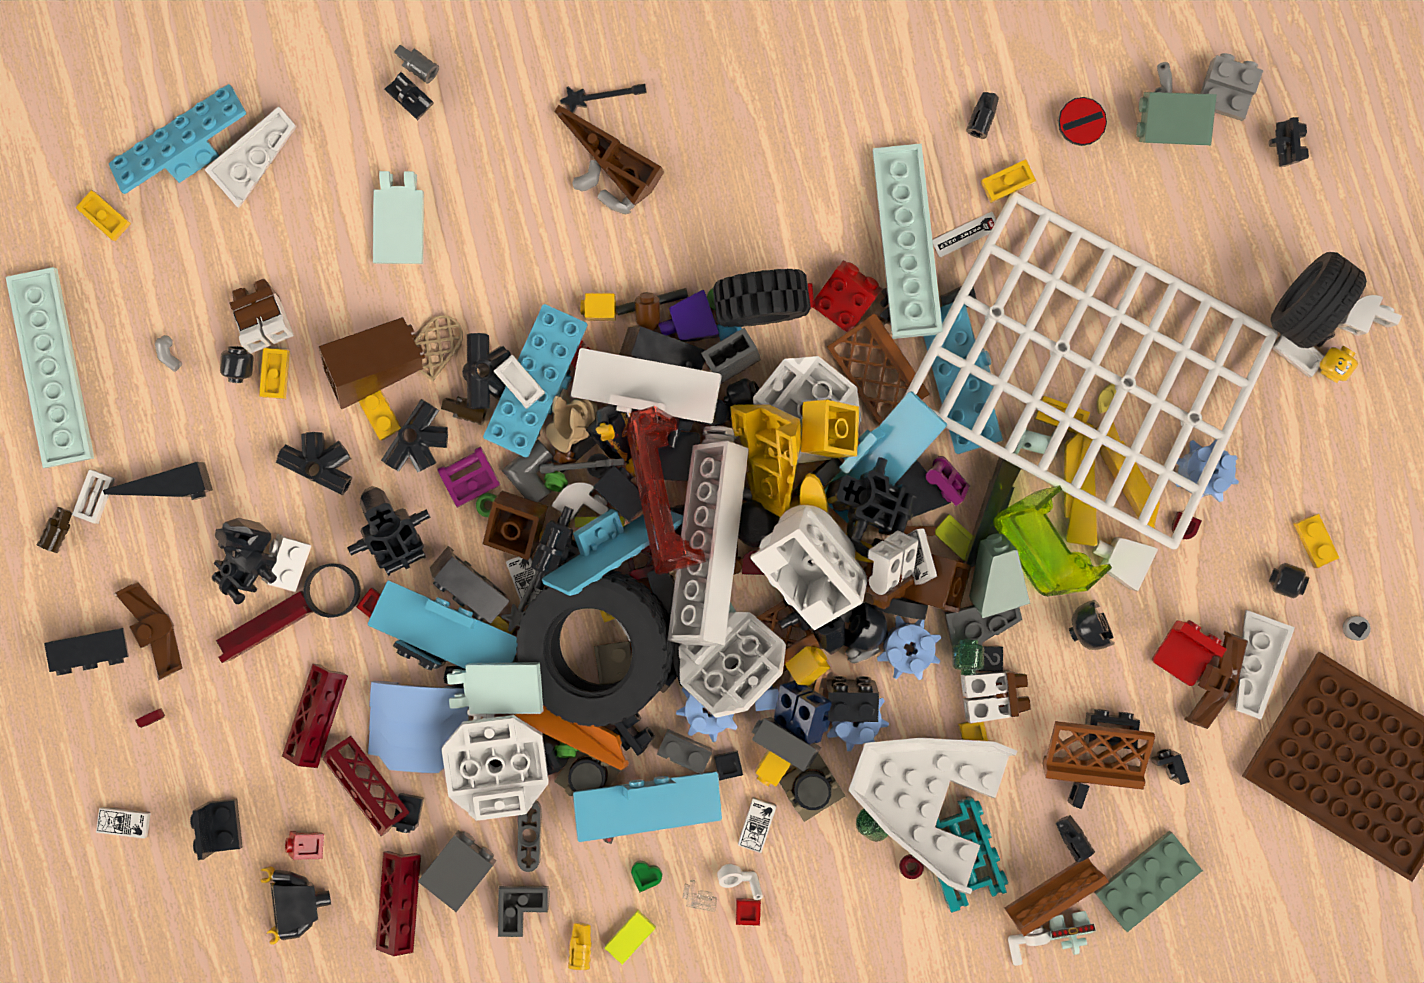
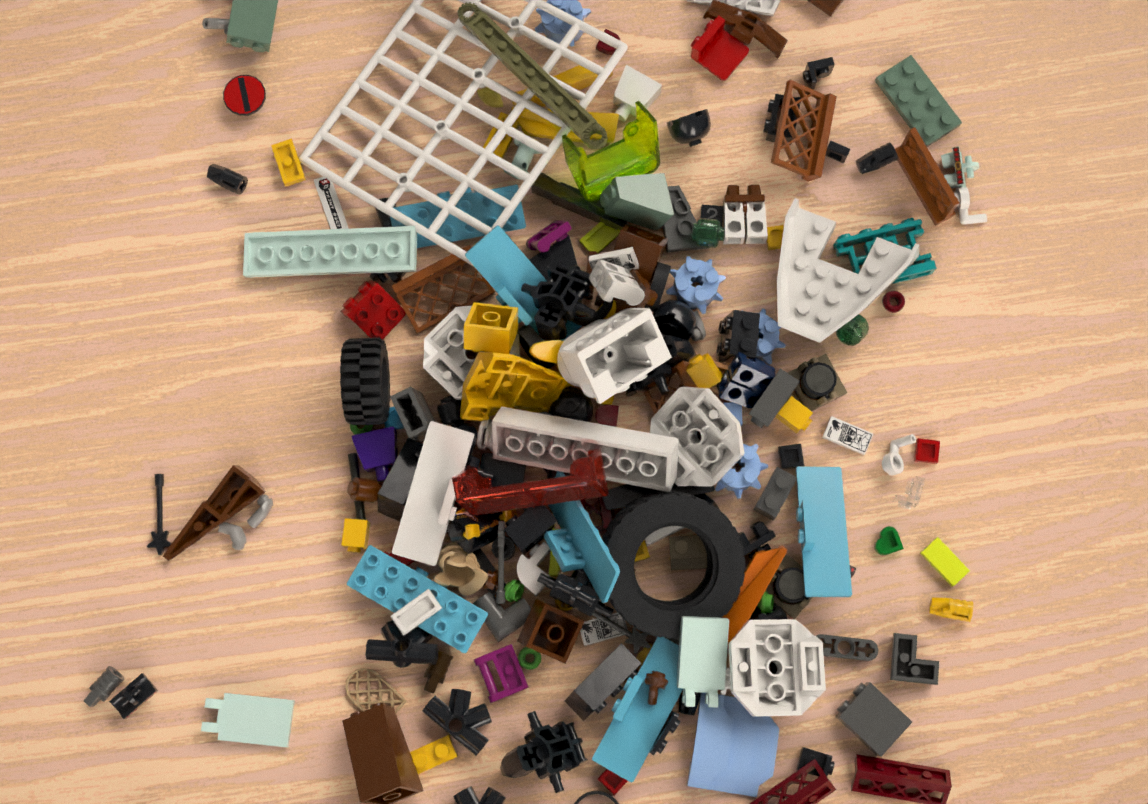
camera: 85 degrees left, 10 degrees down
(470, 641) = (656, 681): none -> reddish brown plate
(1130, 444) = (532, 76): none -> olive plate

